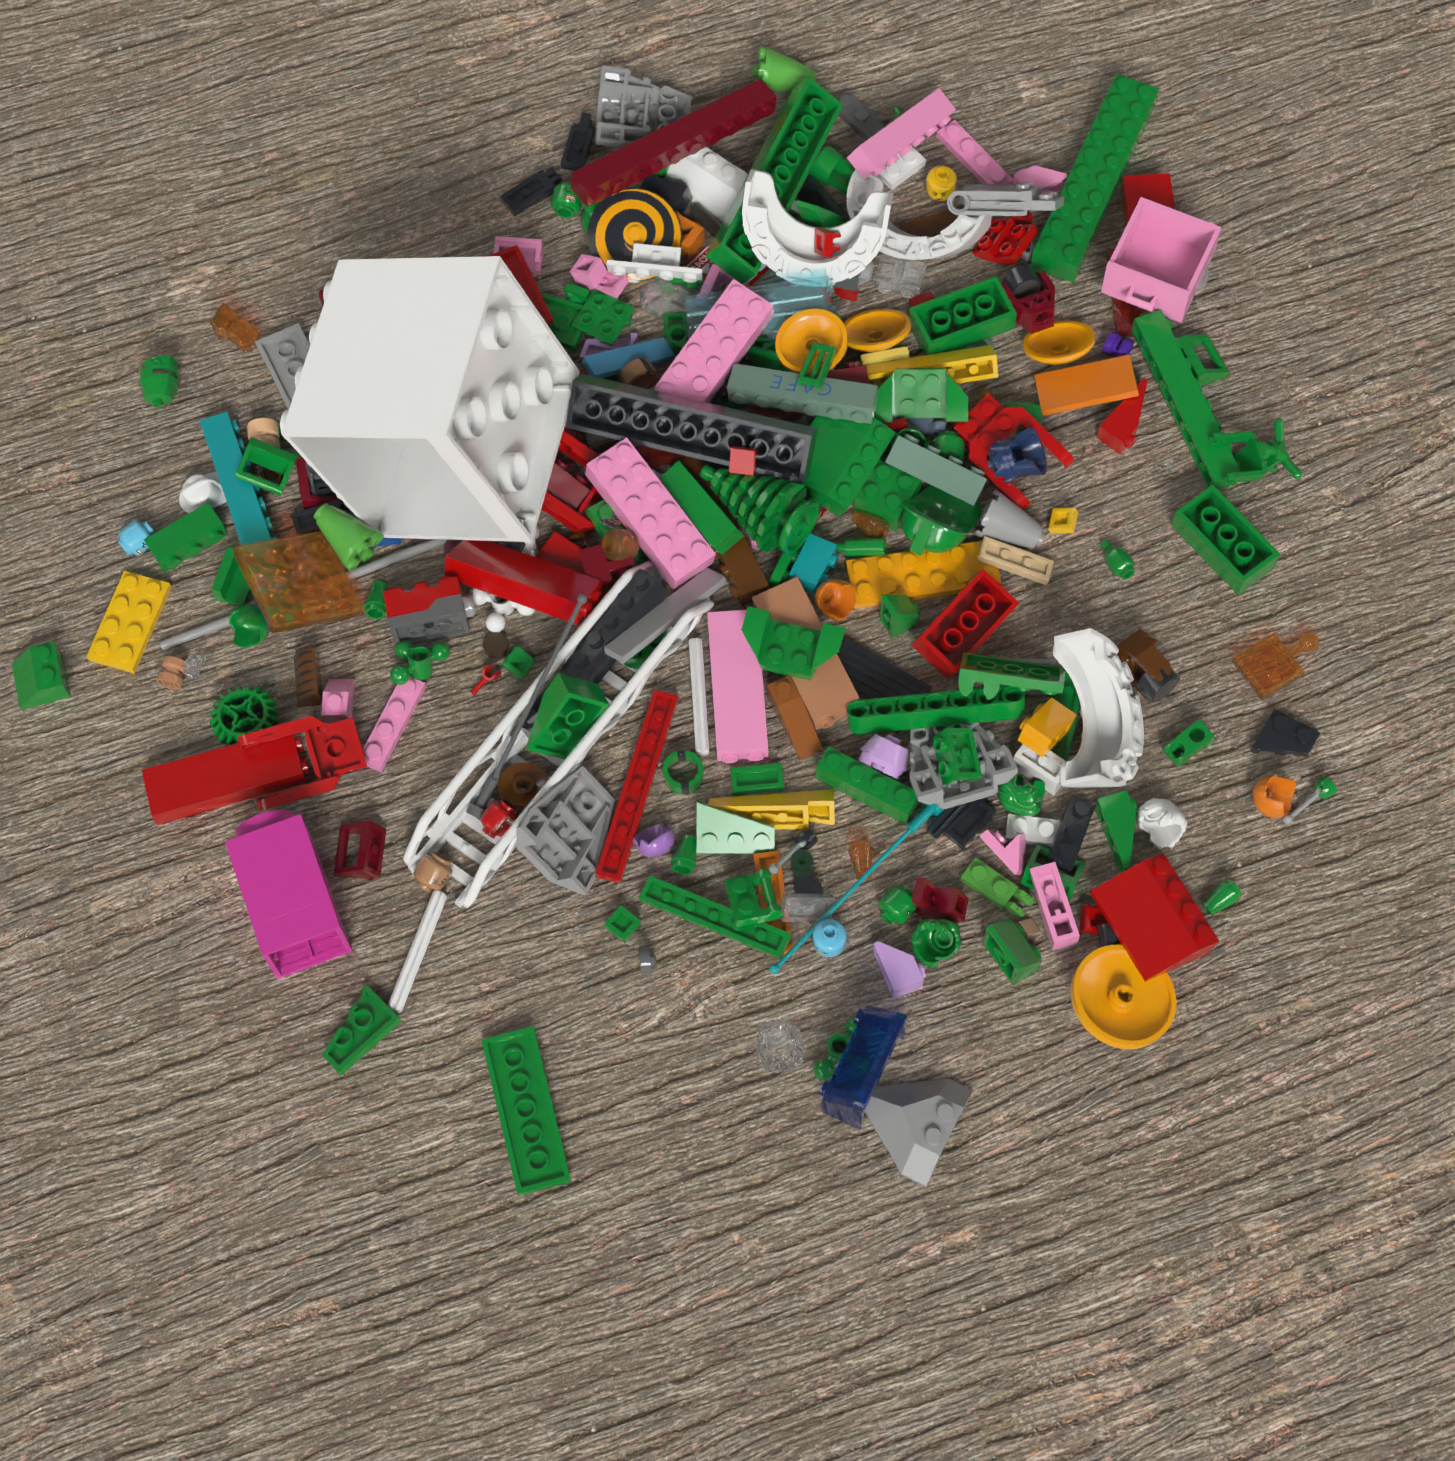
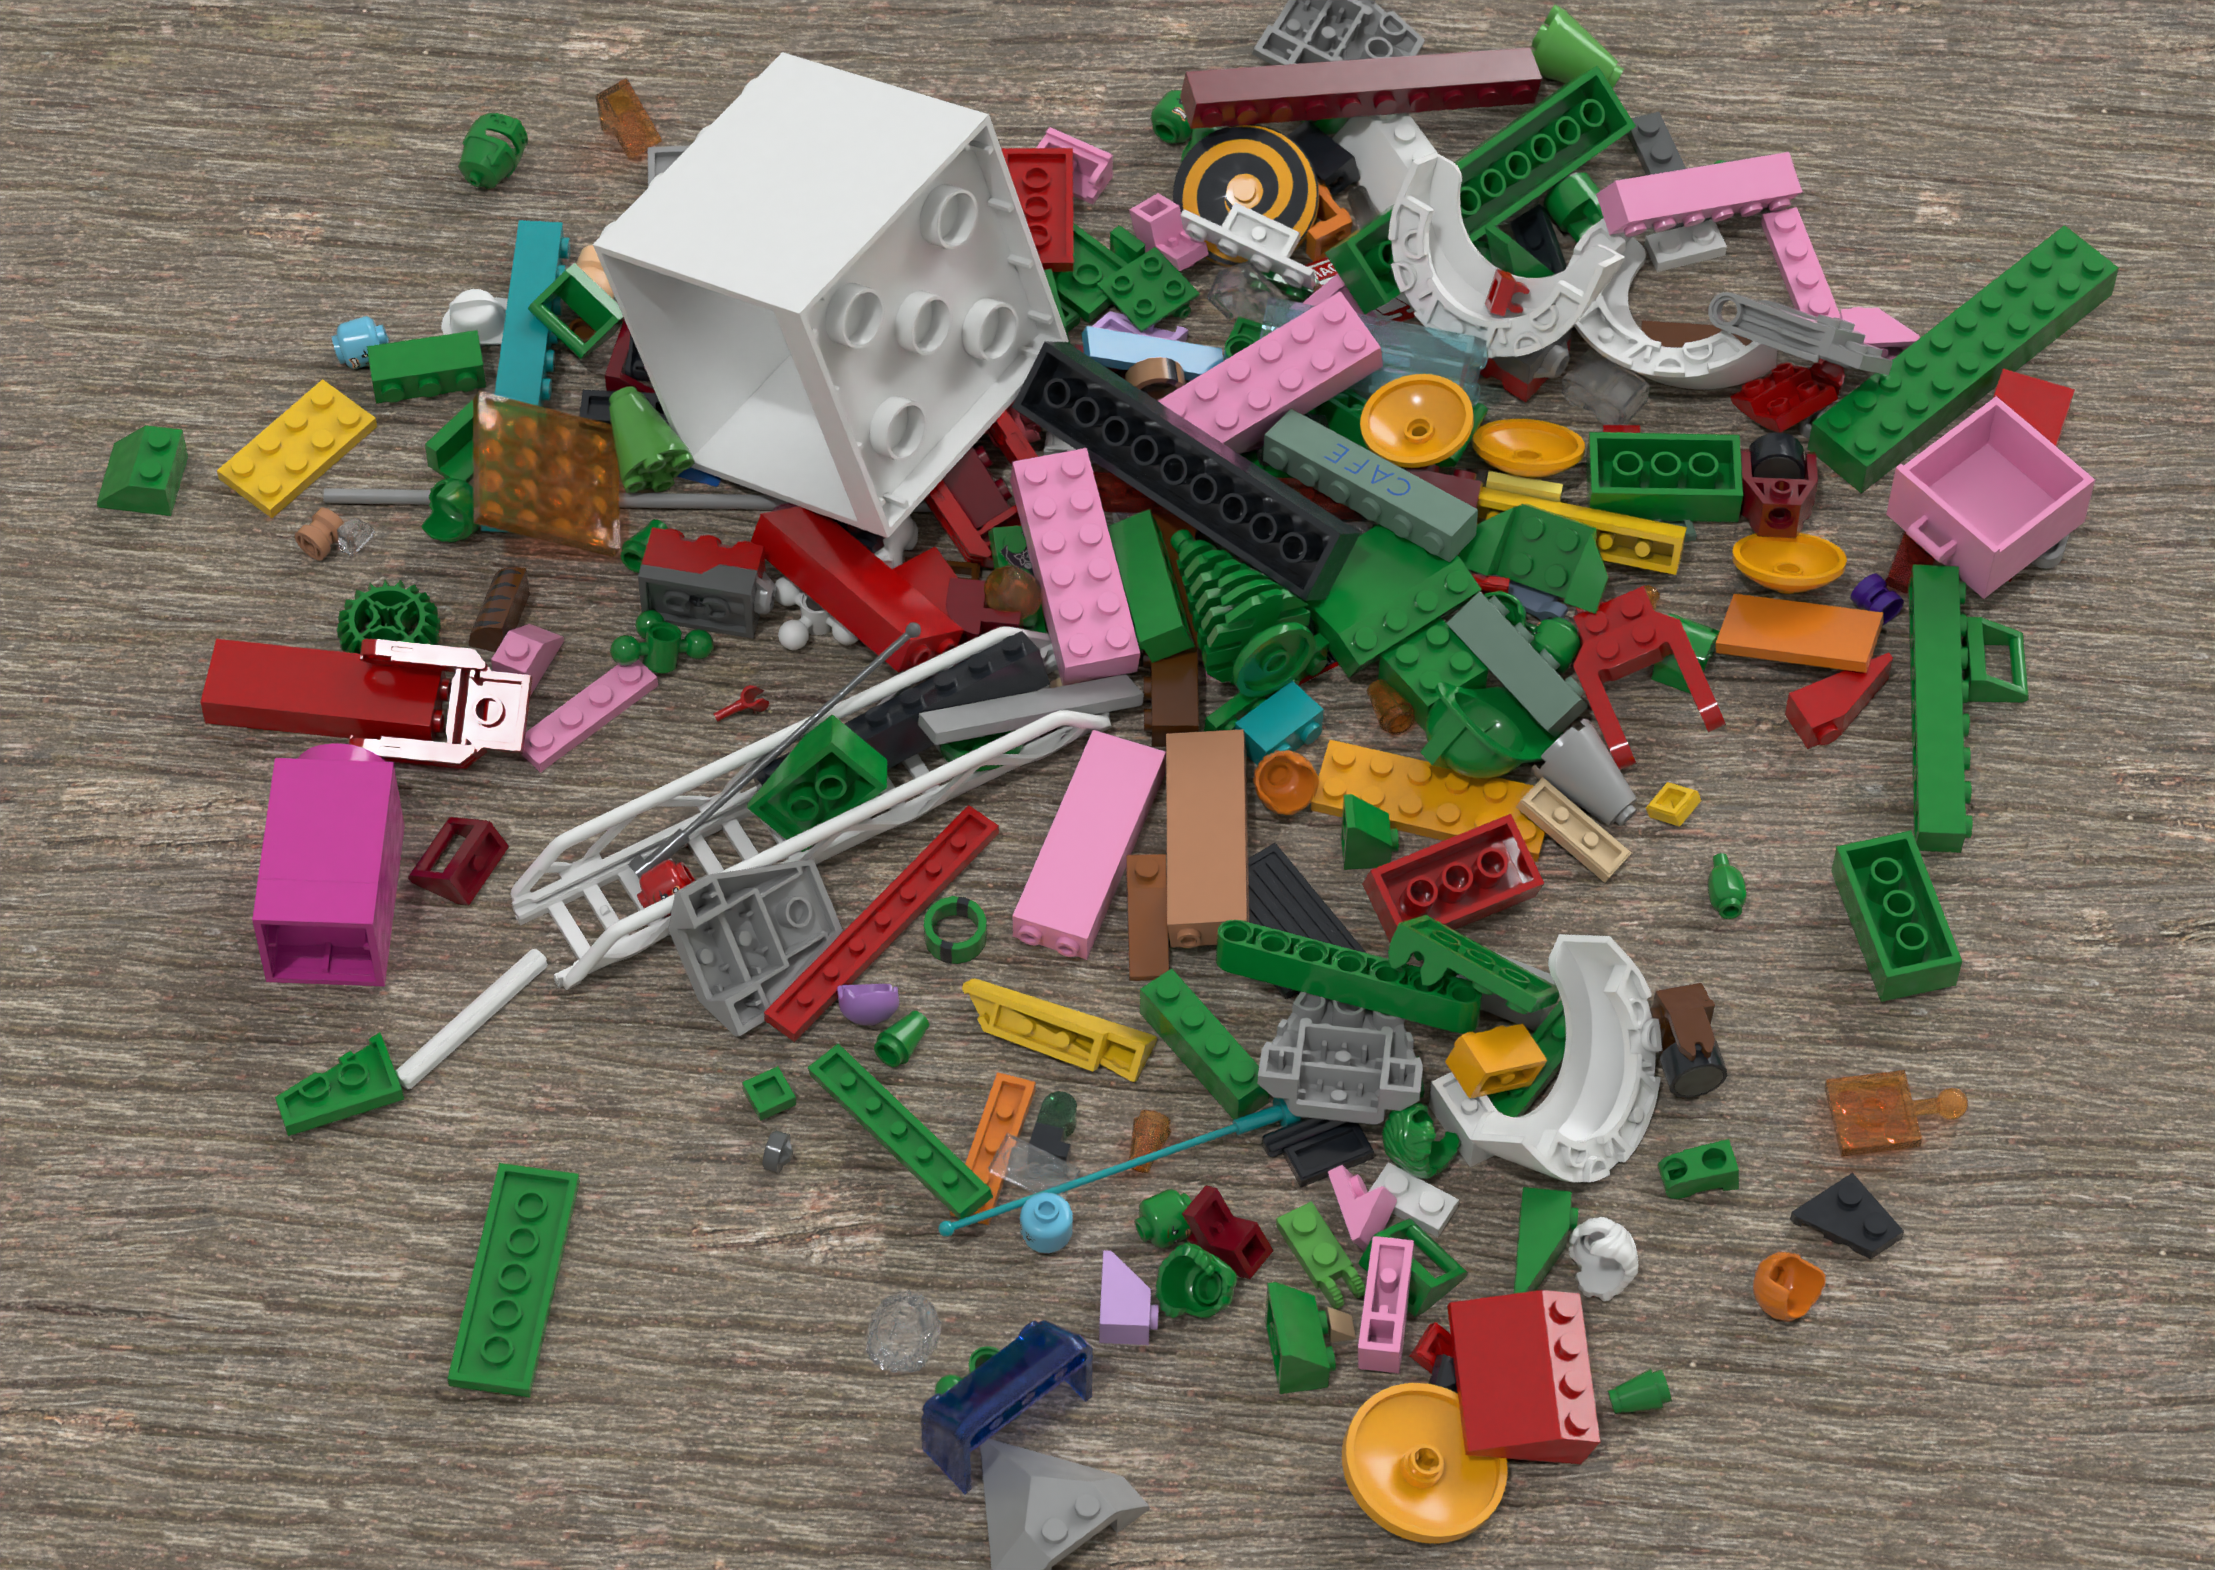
camera: 20 degrees right, 10 degrees down
(432, 872) = (542, 923): medium nougat head -> none
(495, 645) = (779, 666): dark brown tile -> none
(518, 662) = (798, 699): green tile -> none
(521, 776) = (717, 849): reddish brown dish -> none
(530, 191) = (1131, 87): black hinge -> none
(578, 144) = (1235, 44): black hinge -> none
(699, 696) = (1028, 840): white axle -> none
(731, 833) = (978, 1032): wing -> none
(742, 460) = (1233, 537): tile -> none
(744, 899) = (950, 1120): green plate -> none
(757, 779) = (1055, 980): green tile -> none
(790, 647) = (1178, 813): green piece -> none
(804, 840) = (1078, 1082): hinge -> none
(812, 381) = (1409, 454): green tile -> none
(863, 547) = (1363, 730): green cylinder -> none
(885, 755) = (1247, 1012): lavender cone -> none
(941, 182) = (1729, 276): yellow head -> none
(957, 755) = (1344, 1044): green bracket -> none
(1018, 456) = (1640, 683): dark blue hat -> none
(1070, 833) = (1464, 1221): black plate -> none
(1258, 456) = (2004, 820): green piece -> none
(1323, 788) = (1867, 1308): hinge -> none

